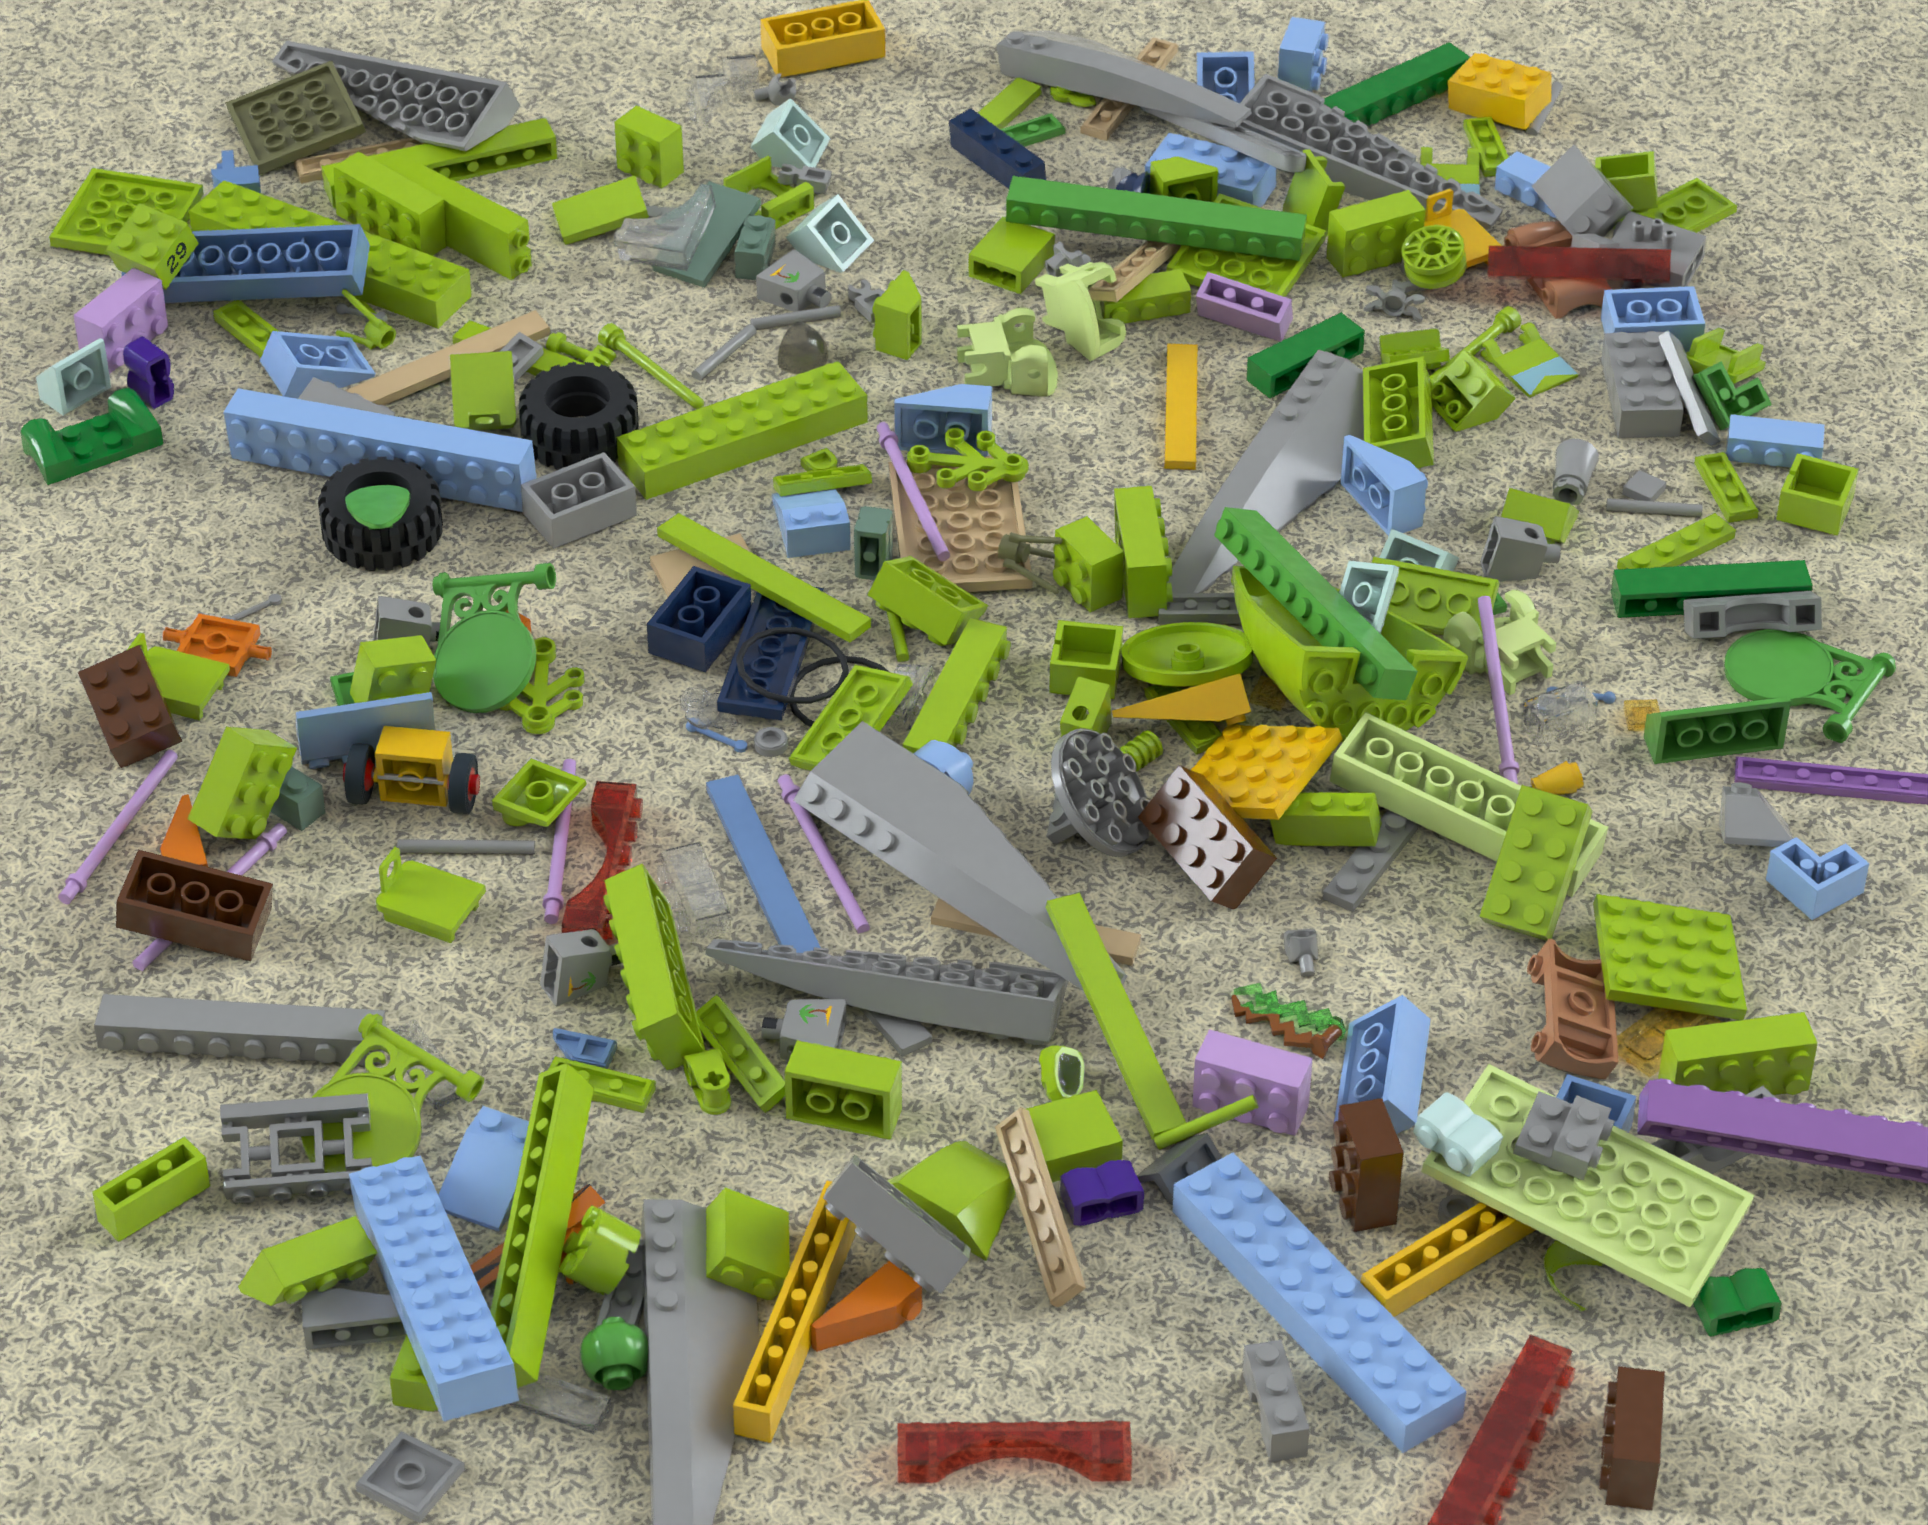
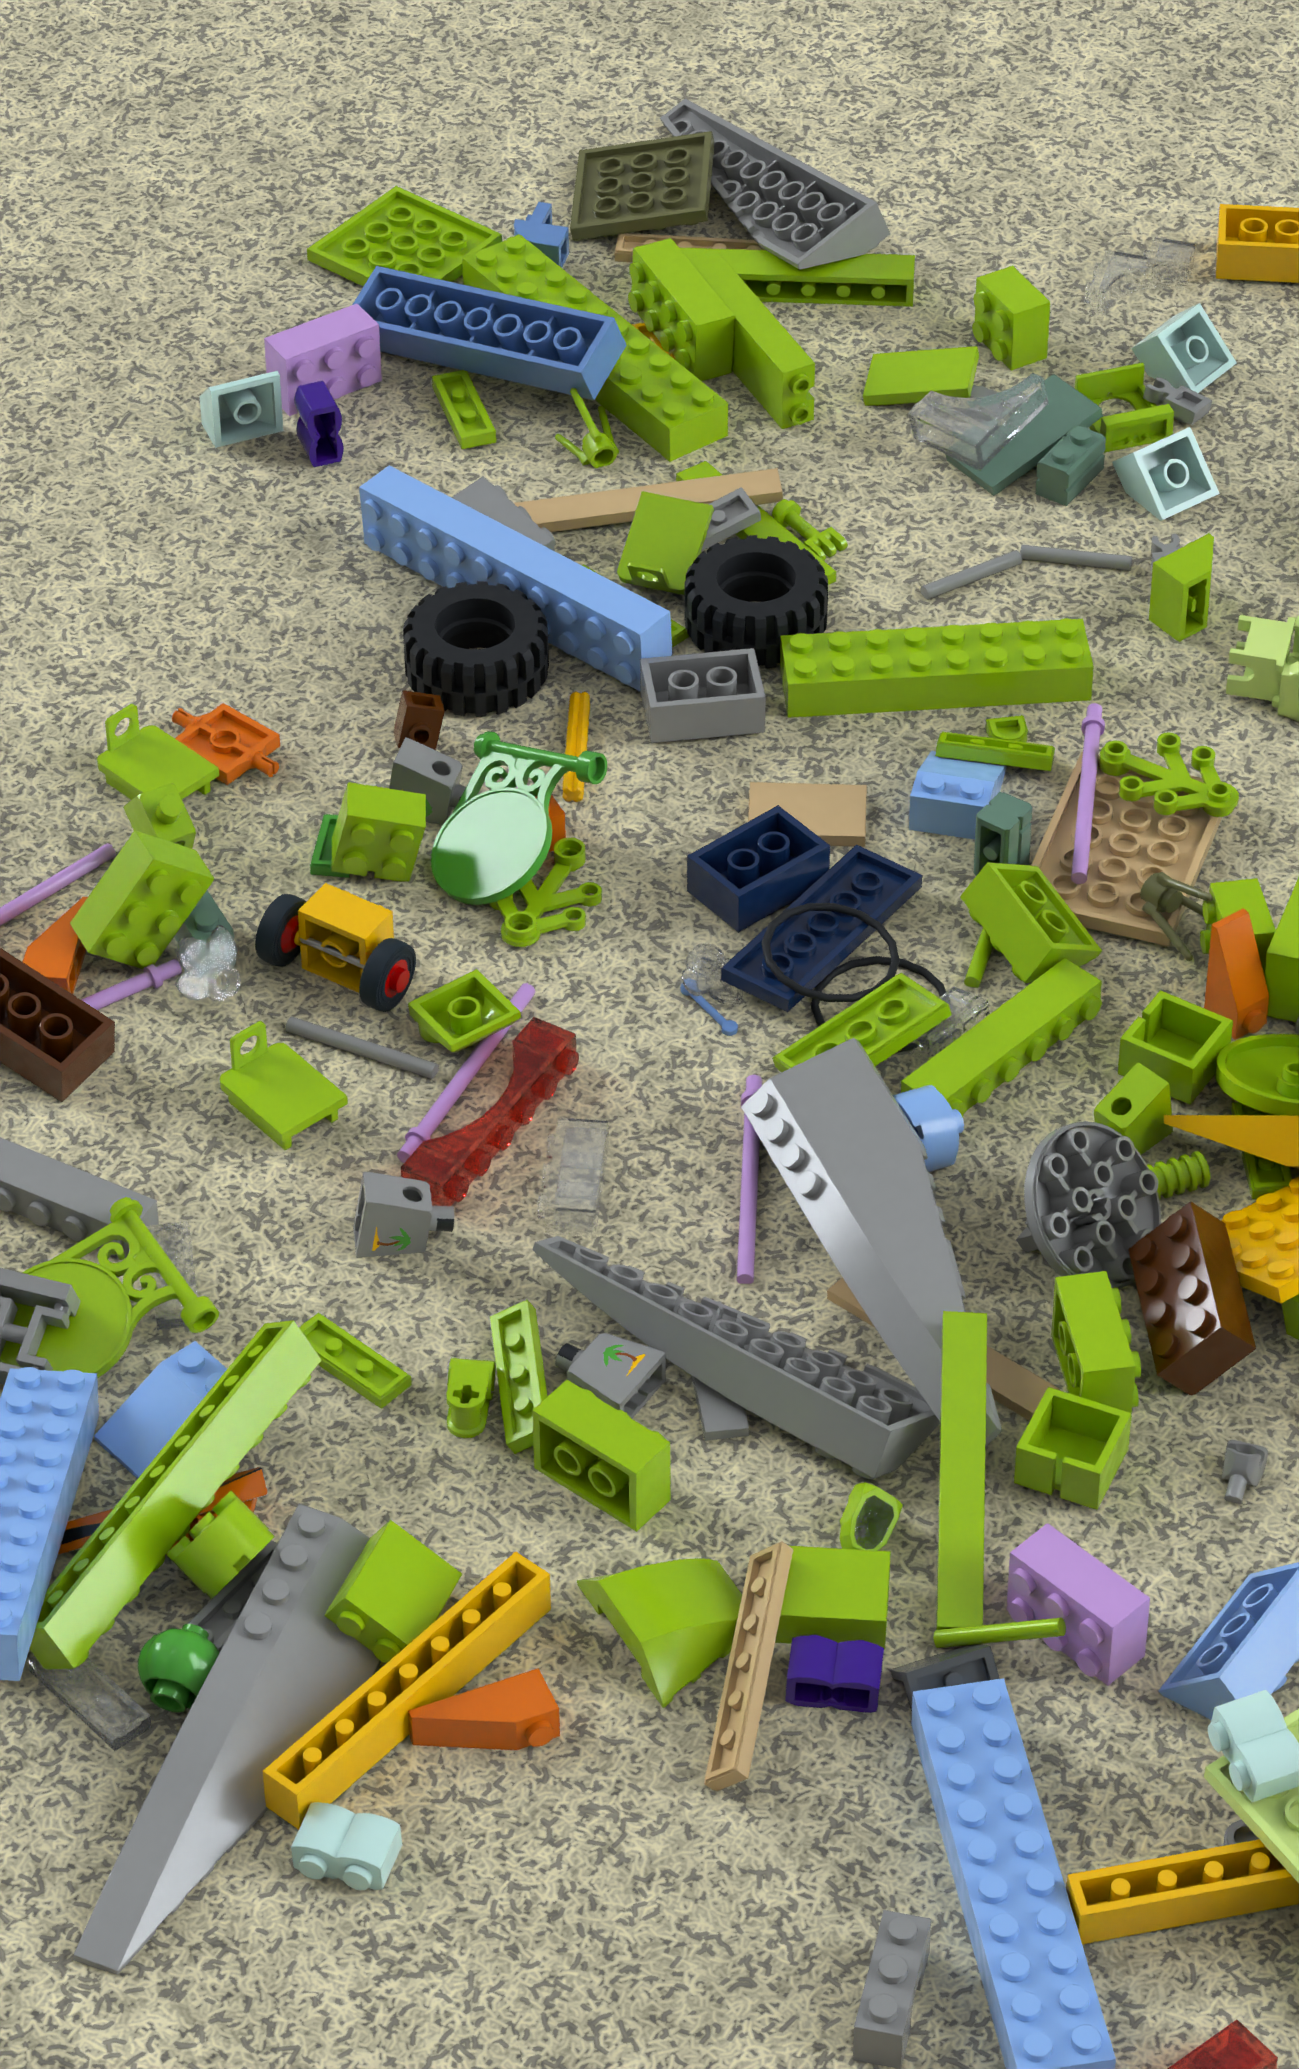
camera: 25 degrees right, 0 degrees up
(94, 442) = (225, 485): green piece -> none
(130, 706) = (84, 783): reddish brown brick -> none
(152, 244) = (388, 284): lime brick -> none
(209, 715) = (162, 815): none -> lime torso
(274, 599) = (316, 712): light grey hinge -> none
(299, 357) = (510, 458): light blue slope -> none
(315, 820) = (203, 964): none -> clear plate
(331, 731) = (267, 870): light blue slope -> none
(343, 309) = (609, 430): light grey hinge -> none
(366, 581) = (419, 718): none -> reddish brown brick
(378, 505) = (458, 637): bright green shield -> none
(492, 555) = (576, 742): none -> yellow axle
(585, 1047) = (359, 1315): medium blue tile -> none
(613, 338) = (854, 525): lime piece -> none
(653, 967) = (472, 1246): lime brick -> none
(761, 864) = (672, 1170): medium blue tile -> none
(764, 577) = (859, 844): lime tile -> none
(770, 742) = (765, 1033): light grey tile -> none
(777, 91) = (1204, 292): light grey piece -> none
(793, 283) = (1091, 517): light grey torso -> none
(802, 349) = (1058, 593): clear smoke helmet -> none
(817, 1440) = (346, 1846): none -> light aqua brick
(897, 1225) = (555, 1627): light grey brick -> none
(928, 415) = (1145, 709): light blue slope -> none
(1091, 1448) = (473, 1906): clear red arch -> none
(1106, 592) = (1236, 976): none -> orange slope
(1157, 897) = (1094, 1341): none -> lime brick
(1181, 972) = (1072, 1448): none -> lime piece
(1322, 1018) = (1214, 1557): piece -> none
(1366, 1165) = (1146, 1747): reddish brown brick -> none

